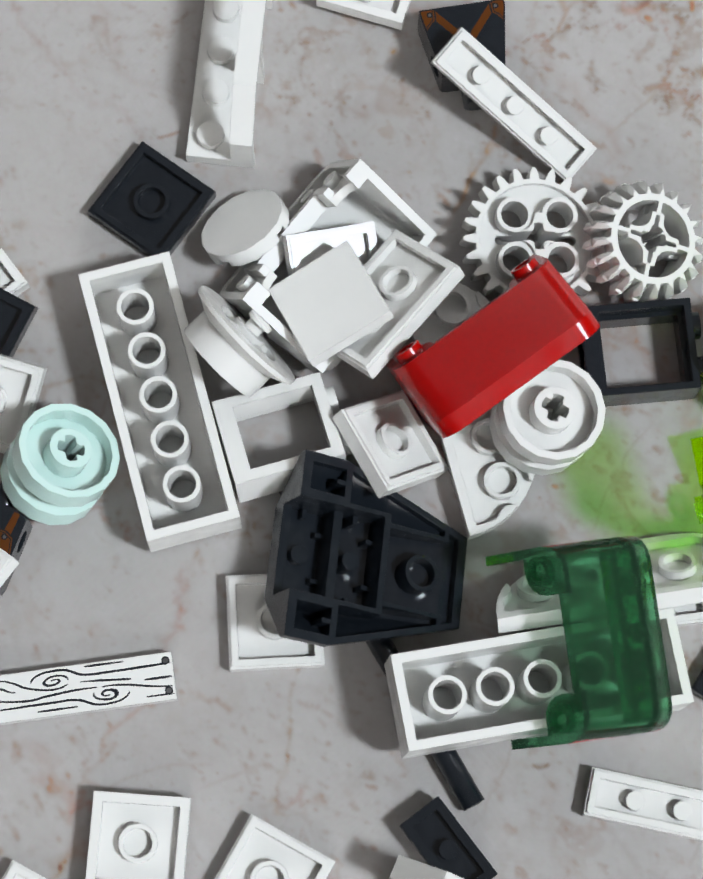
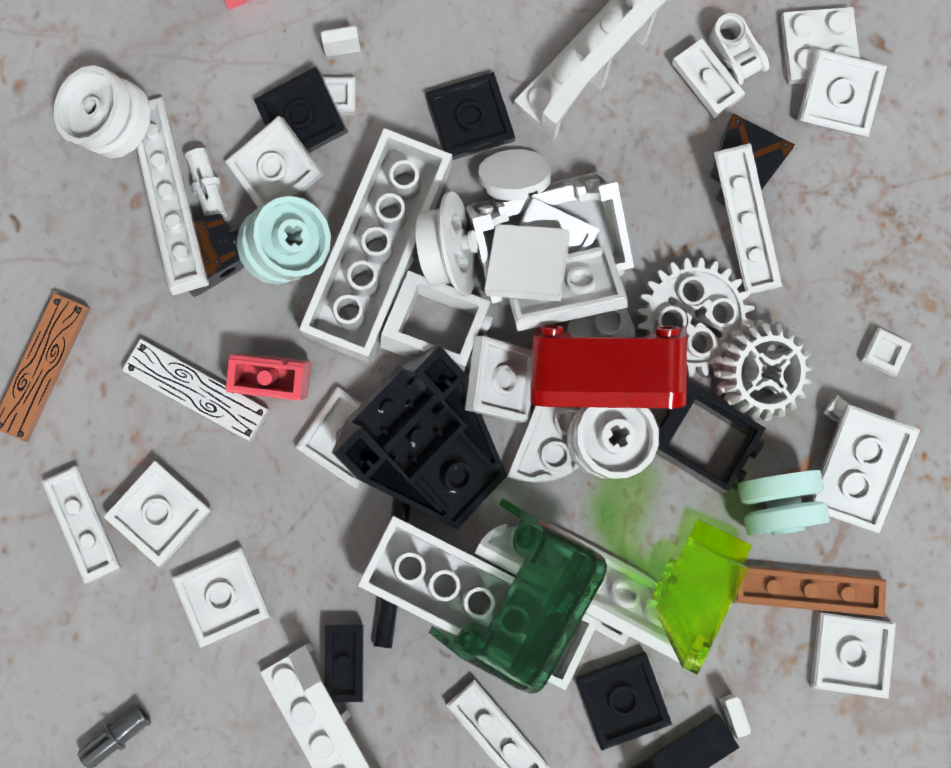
camera: 35 degrees right, 5 degrees up
(148, 615) = (268, 376): none -> coral brick

